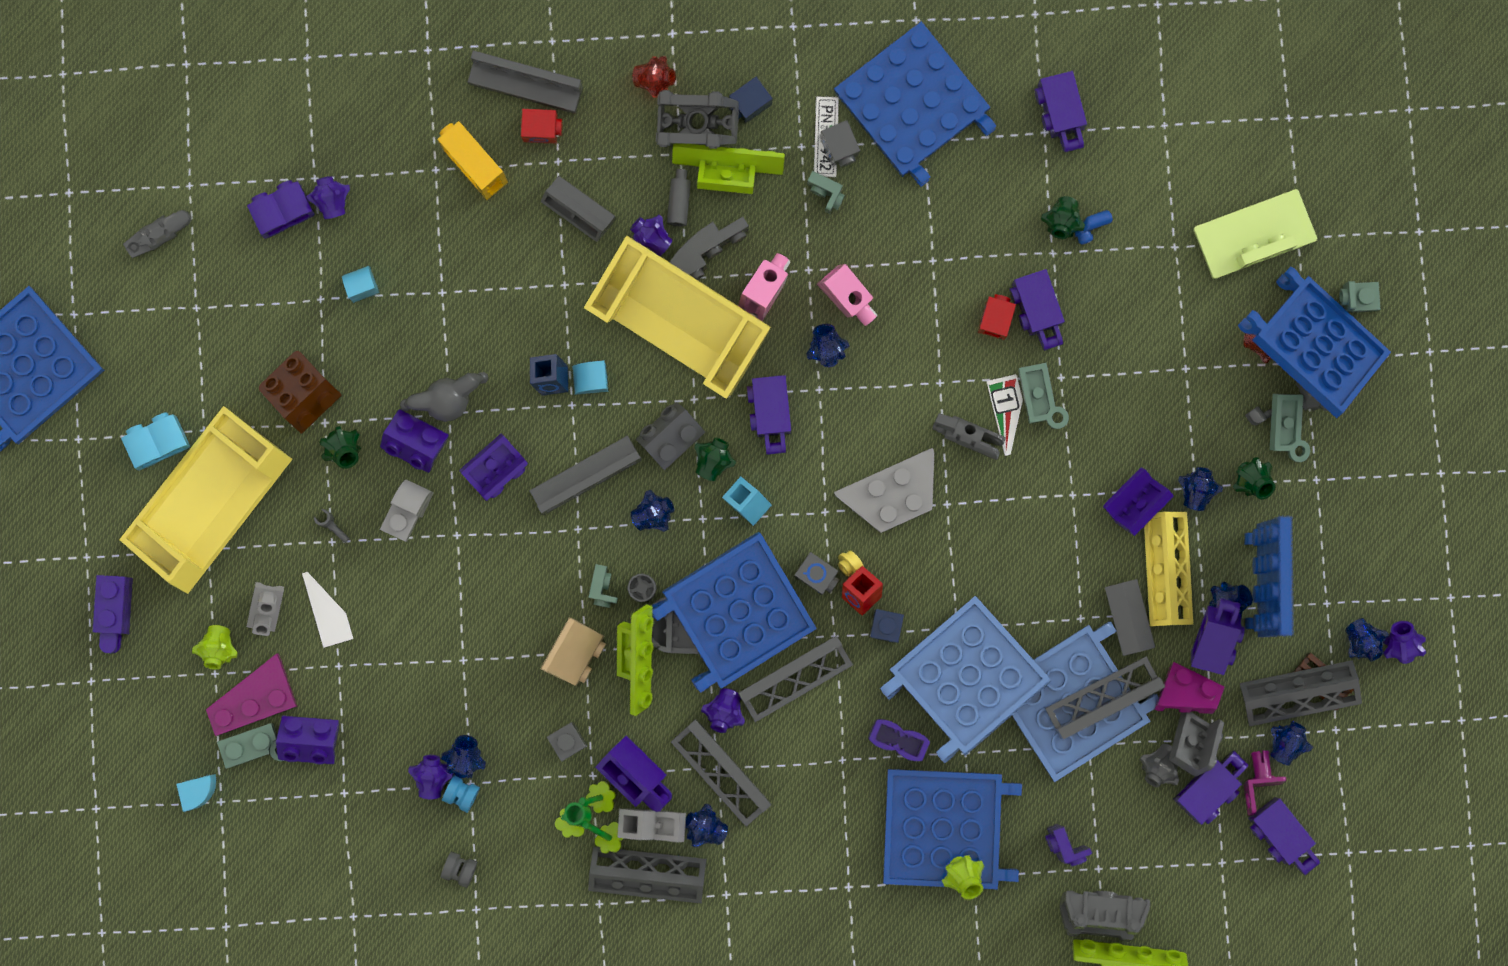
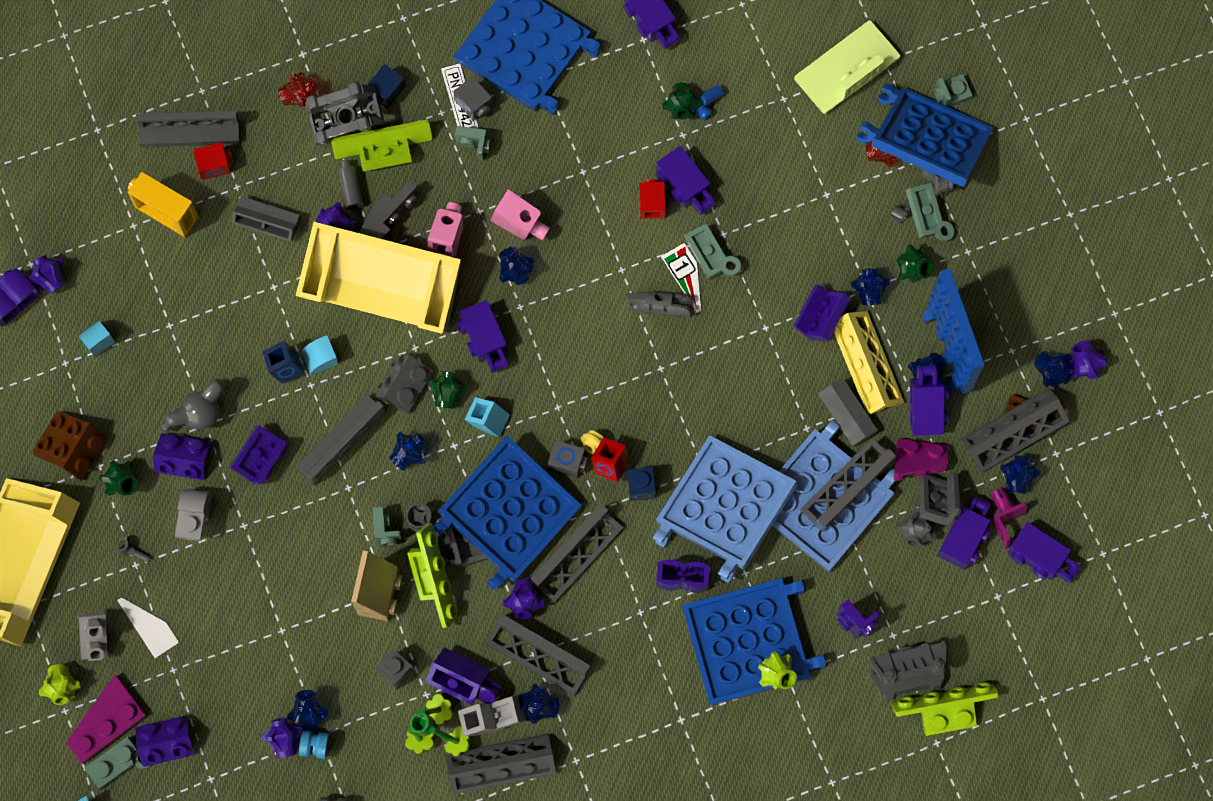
camera: 15 degrees left, 10 degrees down
(893, 493) = (611, 373): light grey wing -> none

